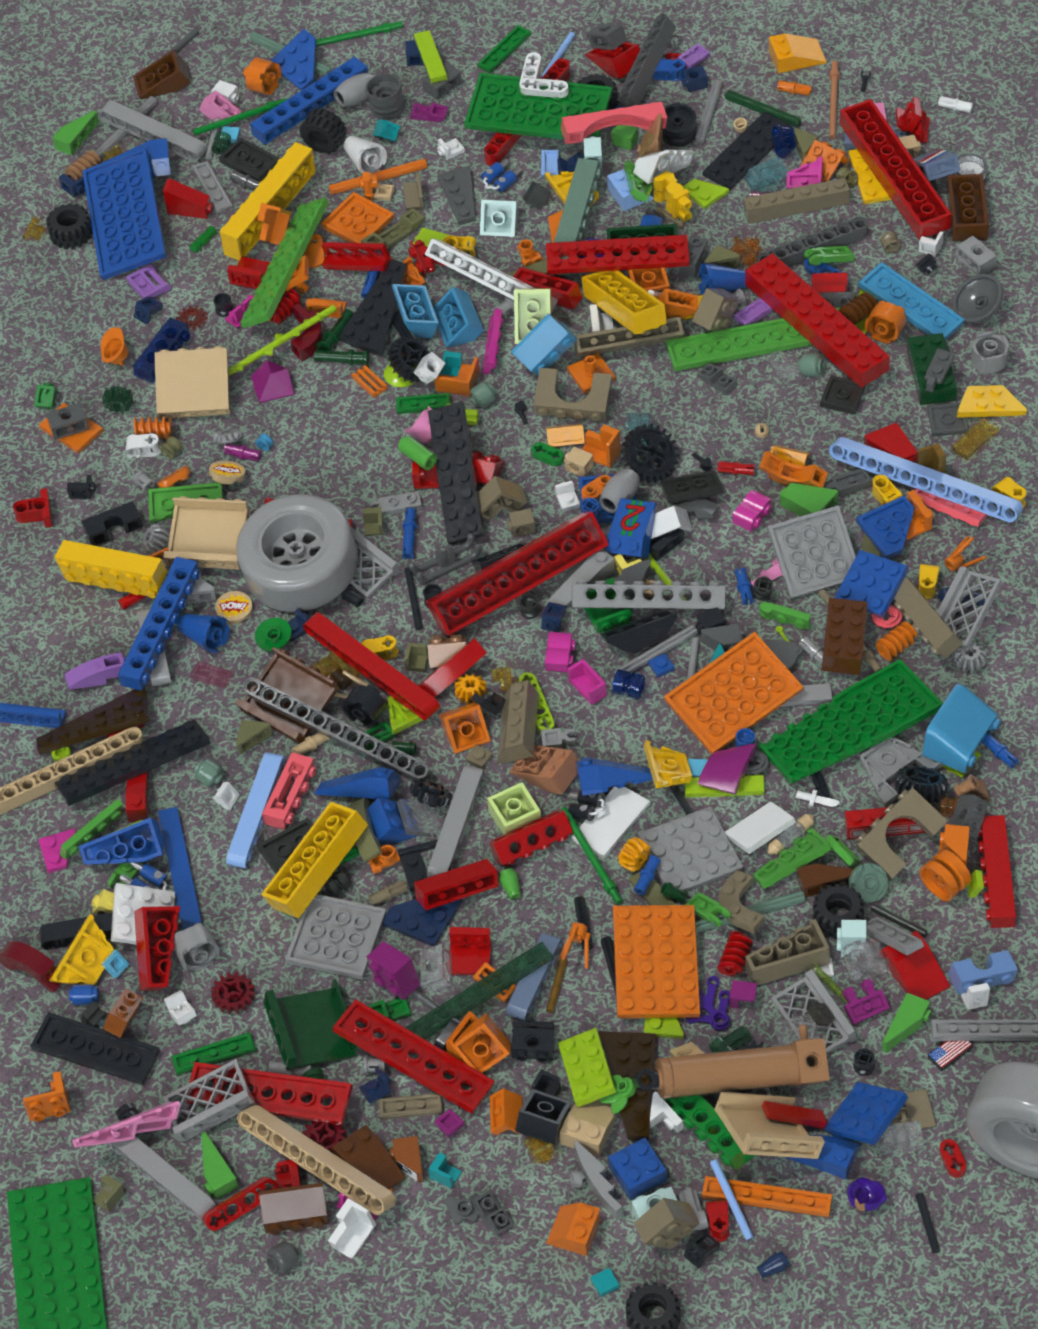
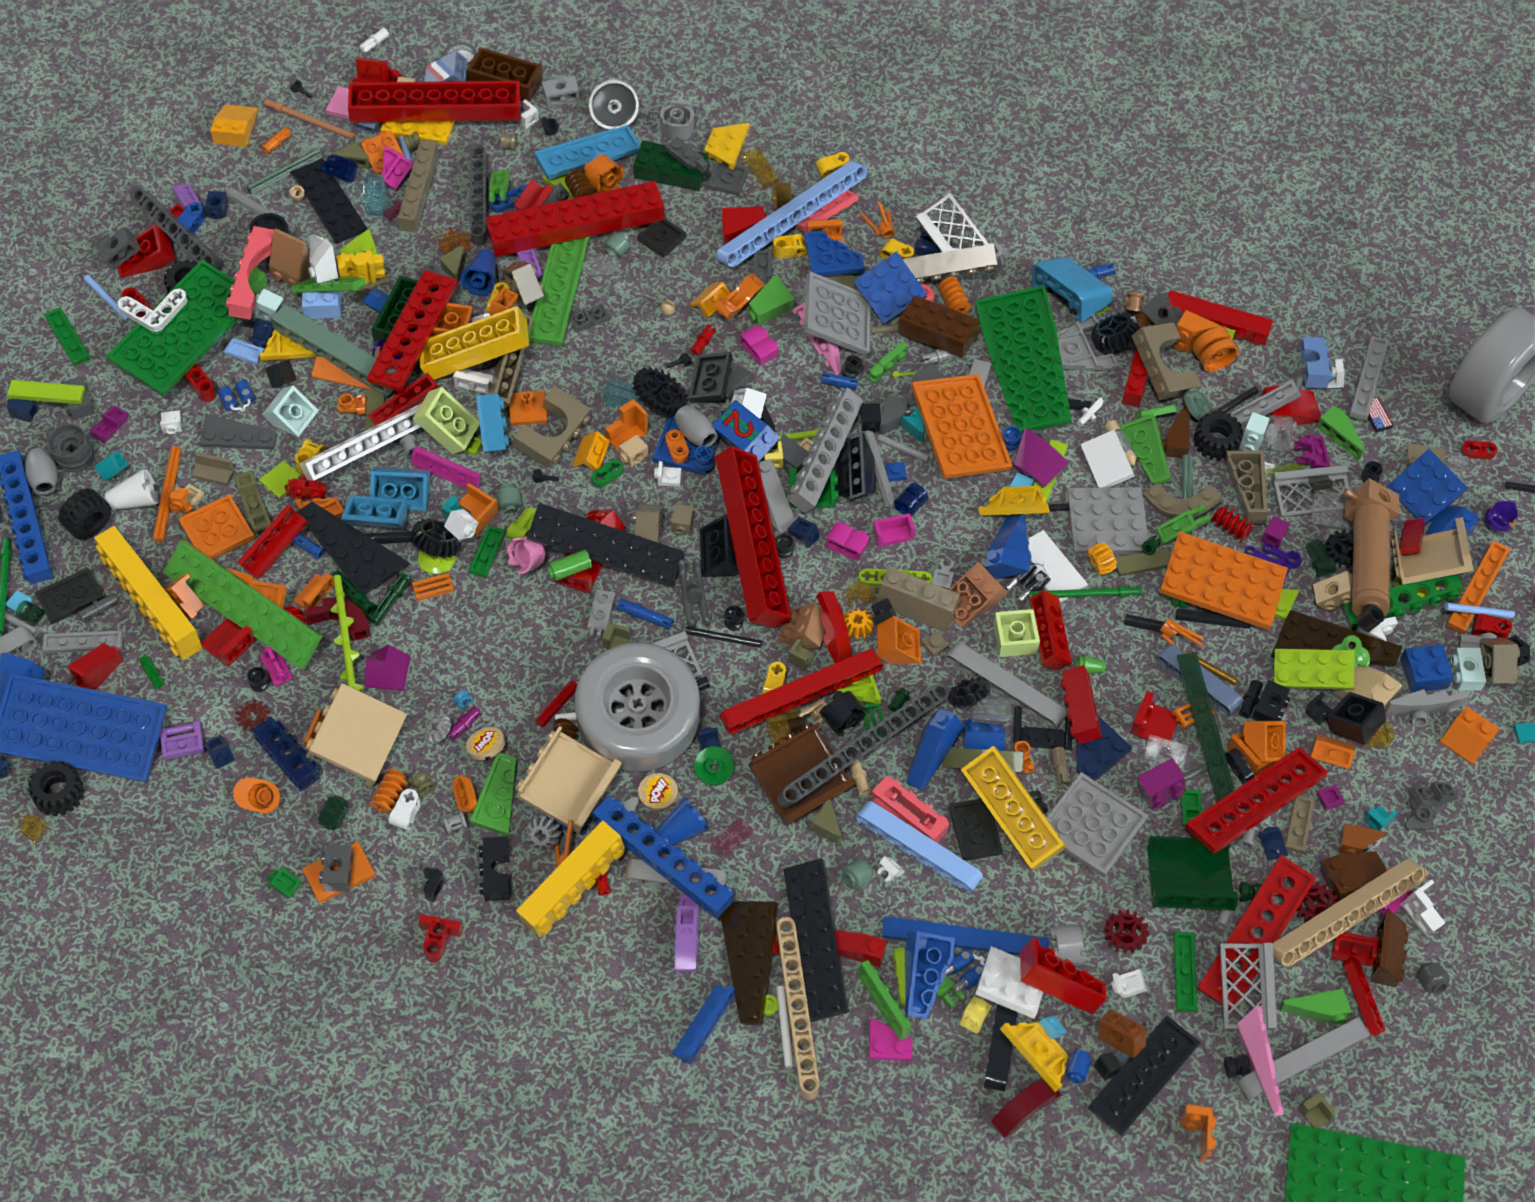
camera: 75 degrees left, 5 degrees up
(647, 875) = (1127, 556): blue pin -> none

